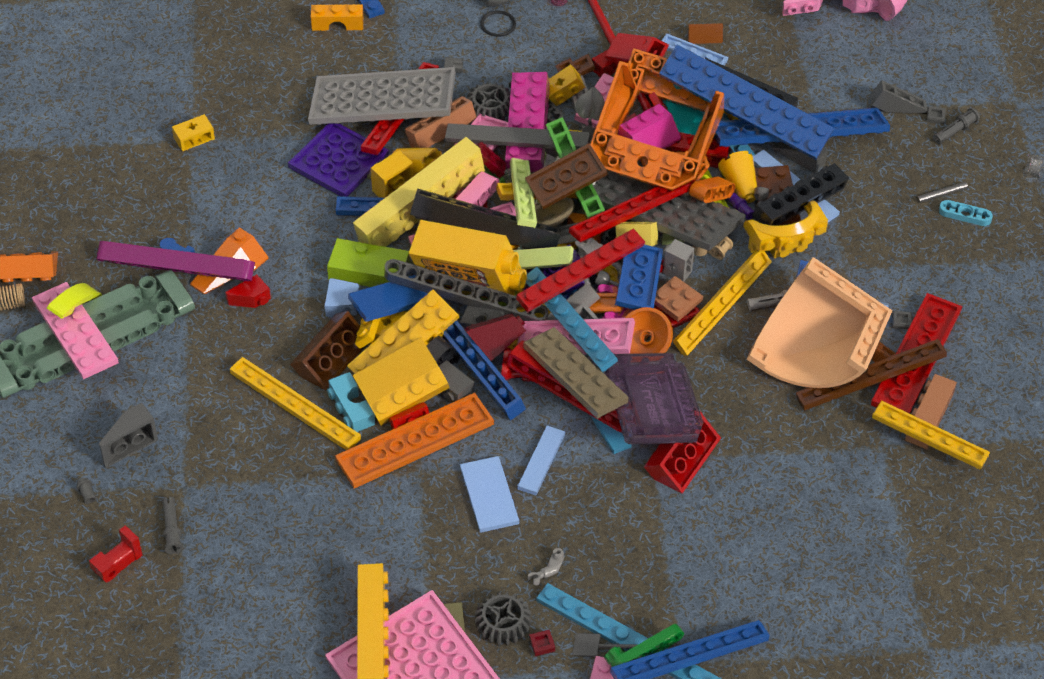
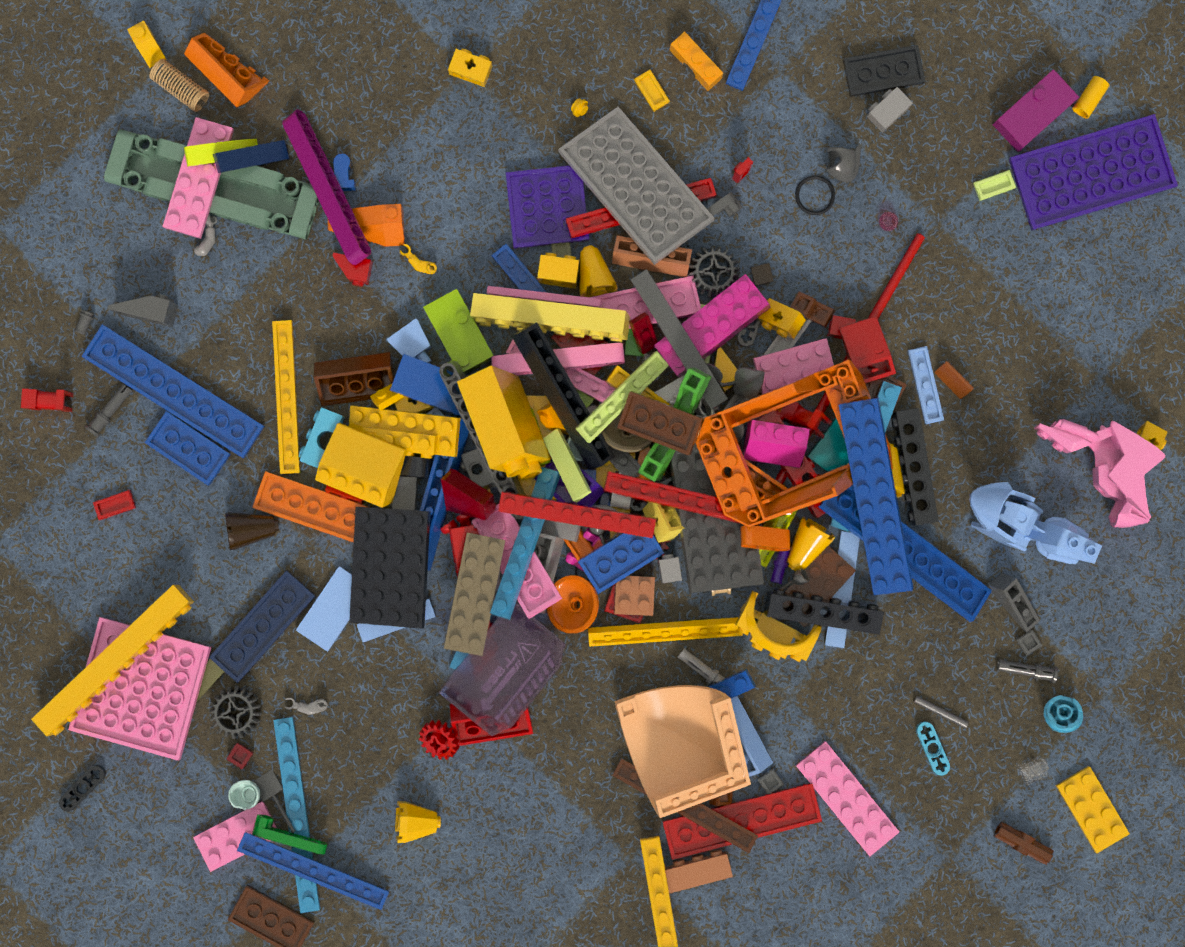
camera: 45 degrees right, 35 degrees up
(99, 286) = (251, 156): none -> dark blue tile
(125, 370) = (209, 240): none -> light grey arm
(205, 472) = (173, 391): none -> blue plate
(247, 580) = (114, 505): none -> red tile
(260, 495) = (187, 448): none -> blue plate
(292, 96) = (579, 107): none -> yellow plate
(292, 258) = (419, 265): none -> yellow arm
(327, 55) = (651, 90): none -> yellow tile
(365, 498) = (248, 528): none -> dark brown cone
(437, 38) = (742, 170): none -> red plate
(453, 549) = (262, 626): none -> dark blue plate
(497, 421) = (390, 567): none -> black plate
(578, 660) = (243, 800): none -> light aqua hair
(660, 497) = (439, 739): none -> red gear
(712, 555) = (414, 822): none -> yellow cone
(840, 56) = (1054, 538): none -> light blue piece
(959, 284) = (847, 798): none -> bright pink plate
(1008, 124) = (1063, 714): none -> medium azure cone

